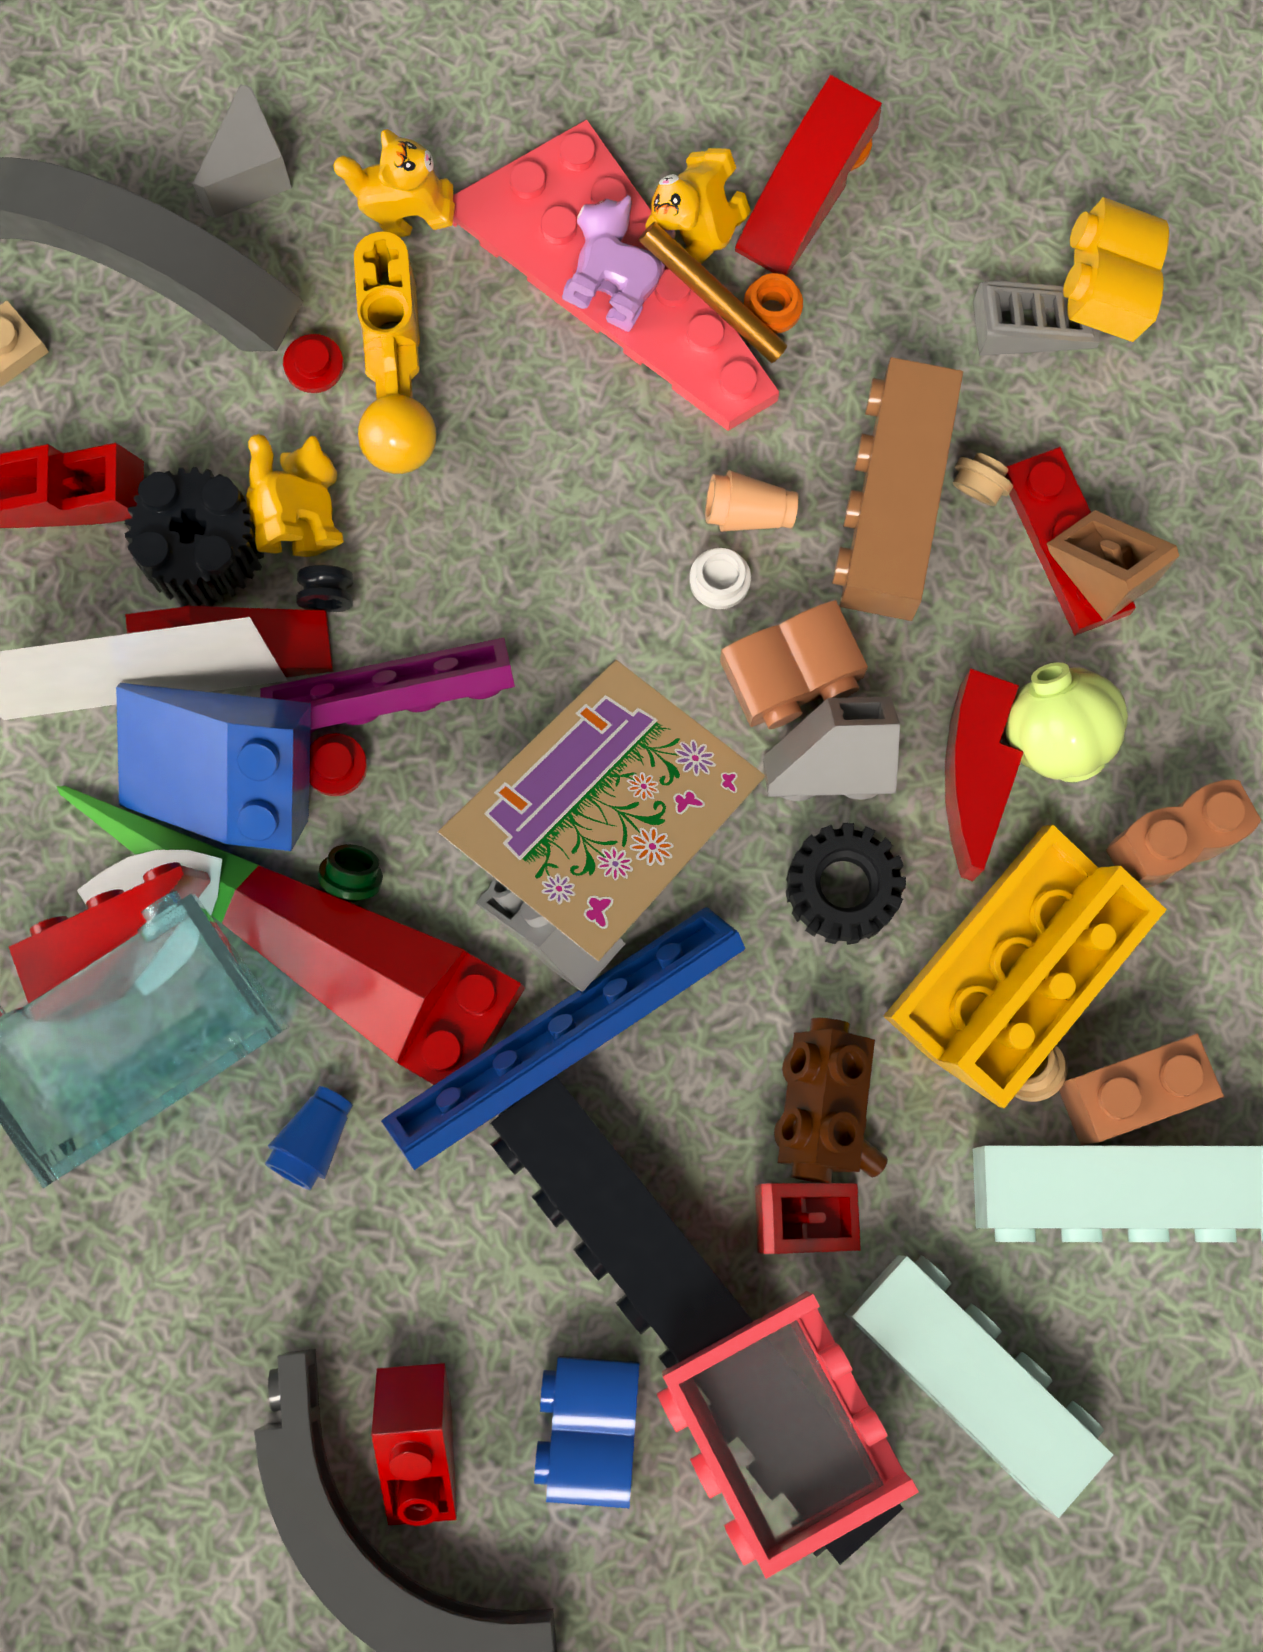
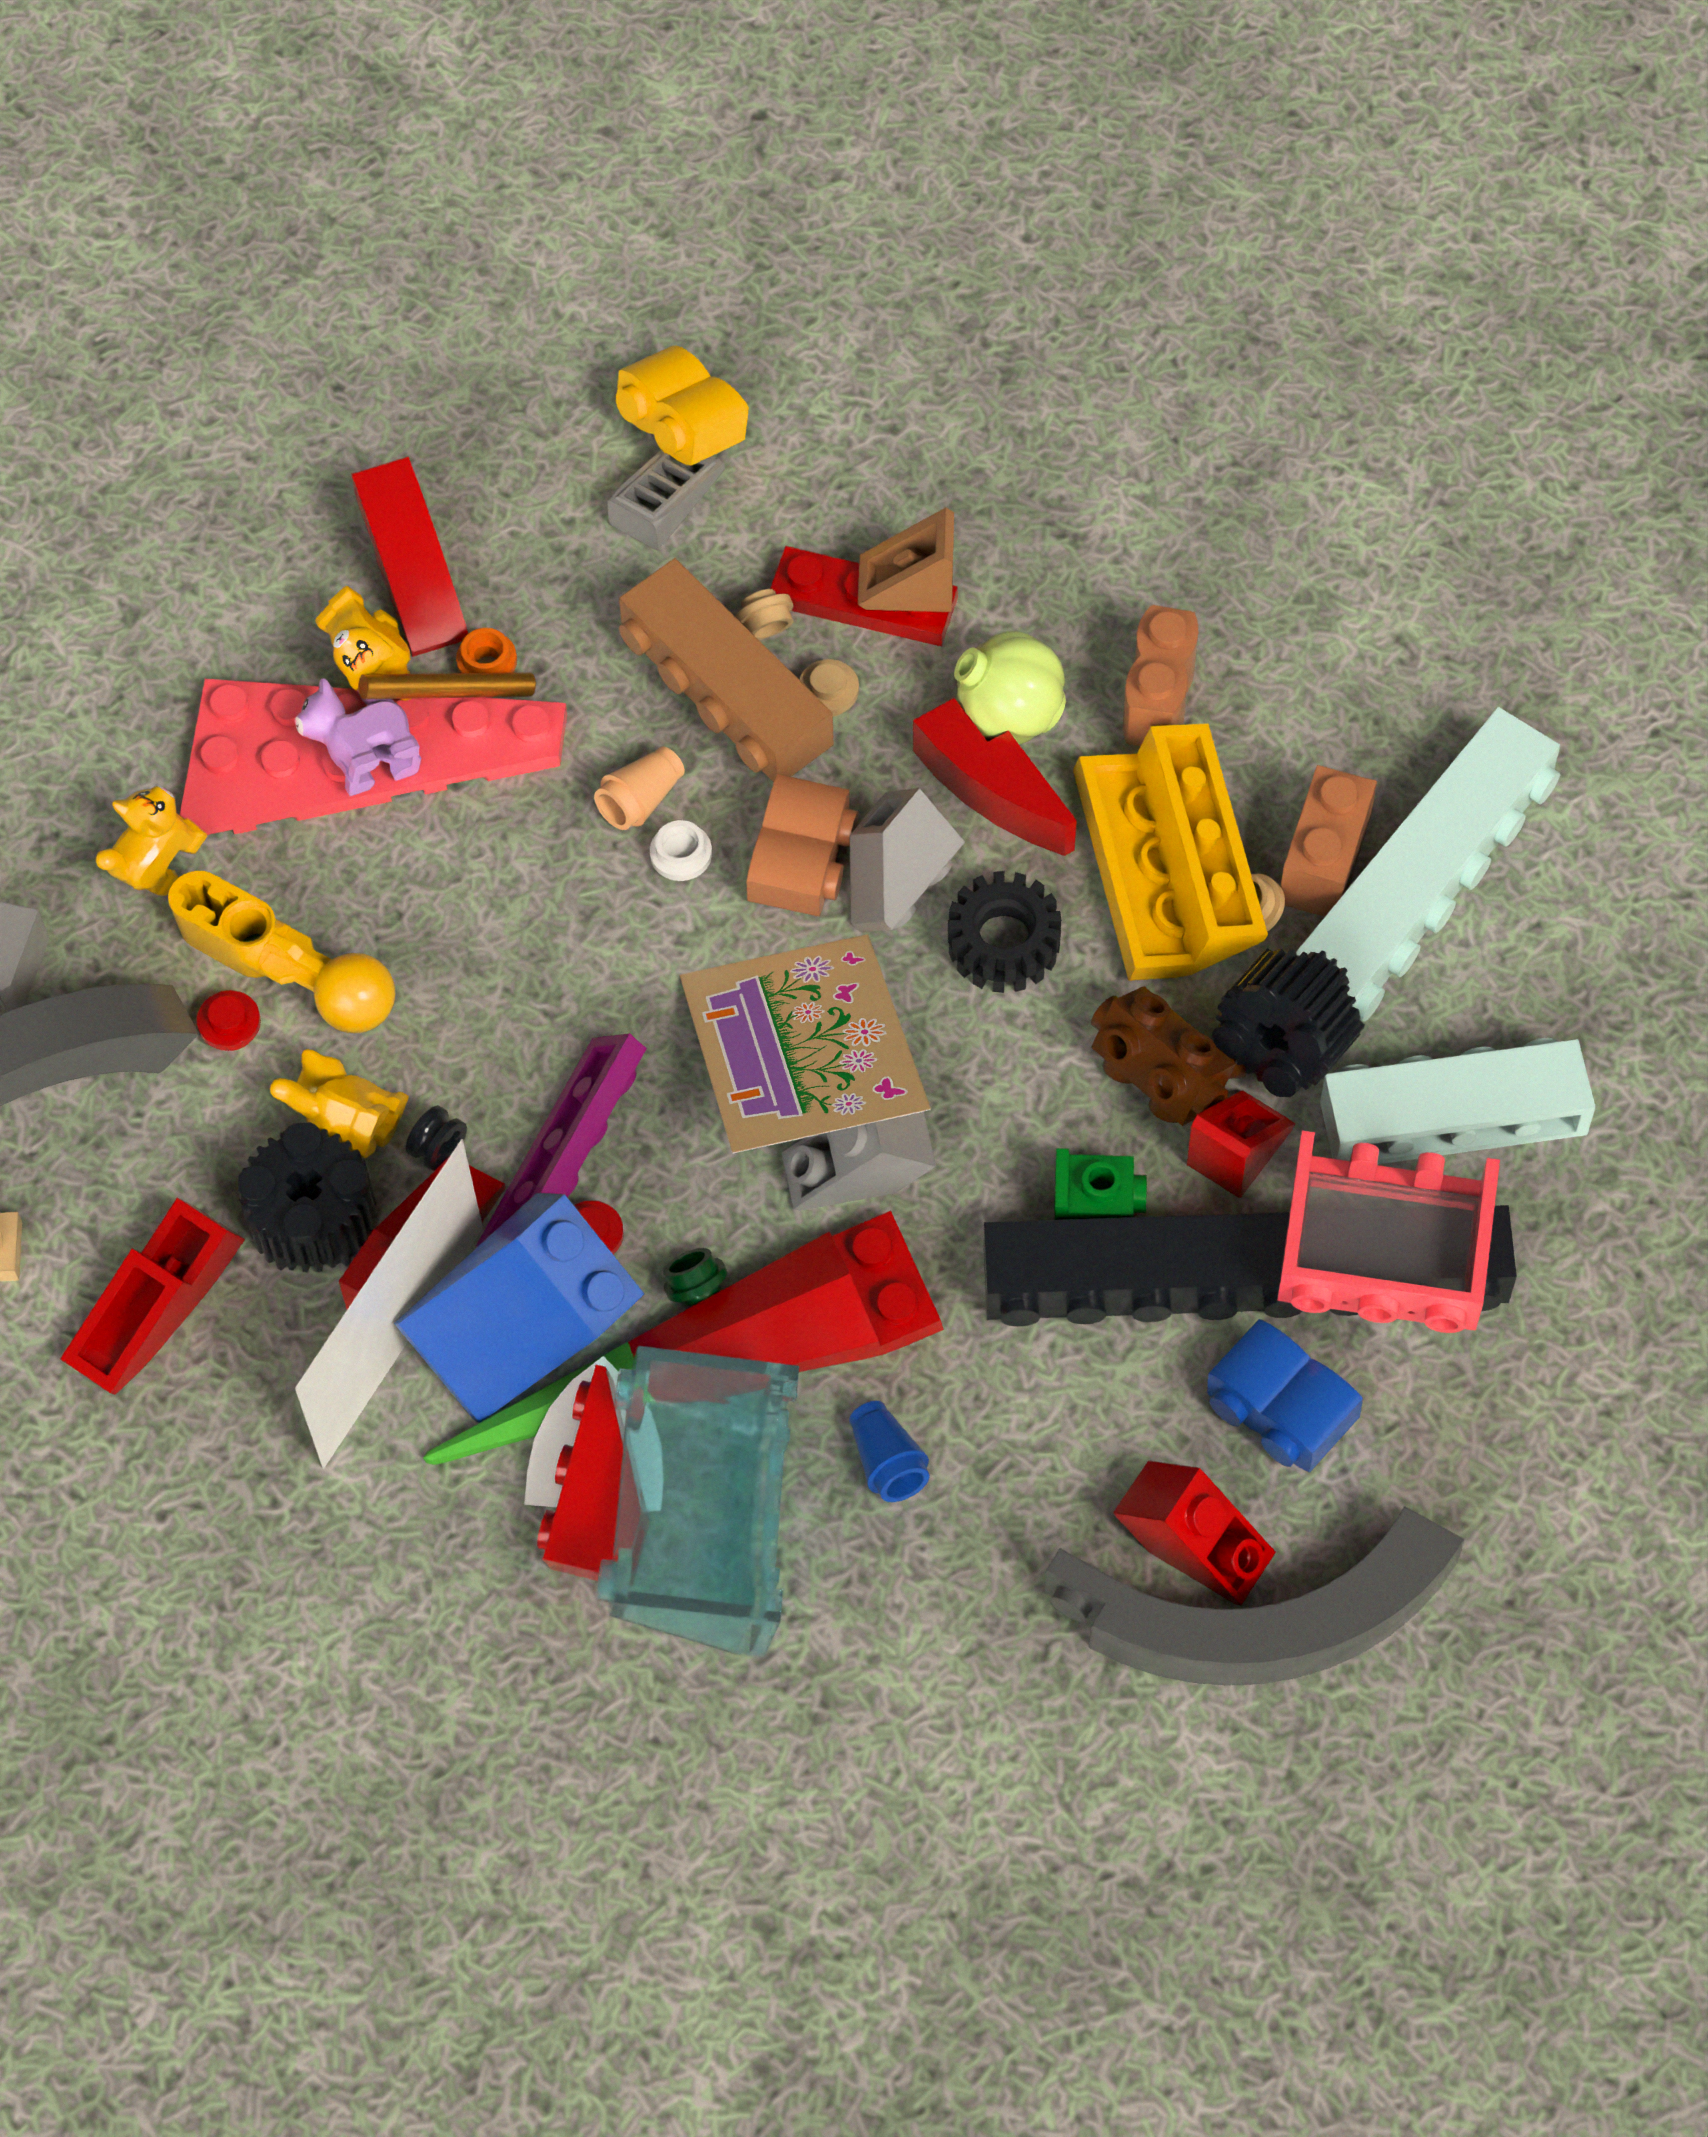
camera: 50 degrees left, 15 degrees down
(561, 1036) = (959, 1203): blue tile -> none
(658, 1110) = (1079, 1176): none -> green brick
(932, 1189) = (1288, 1019): none -> black brick
(959, 577) = (832, 684): none -> tan plate

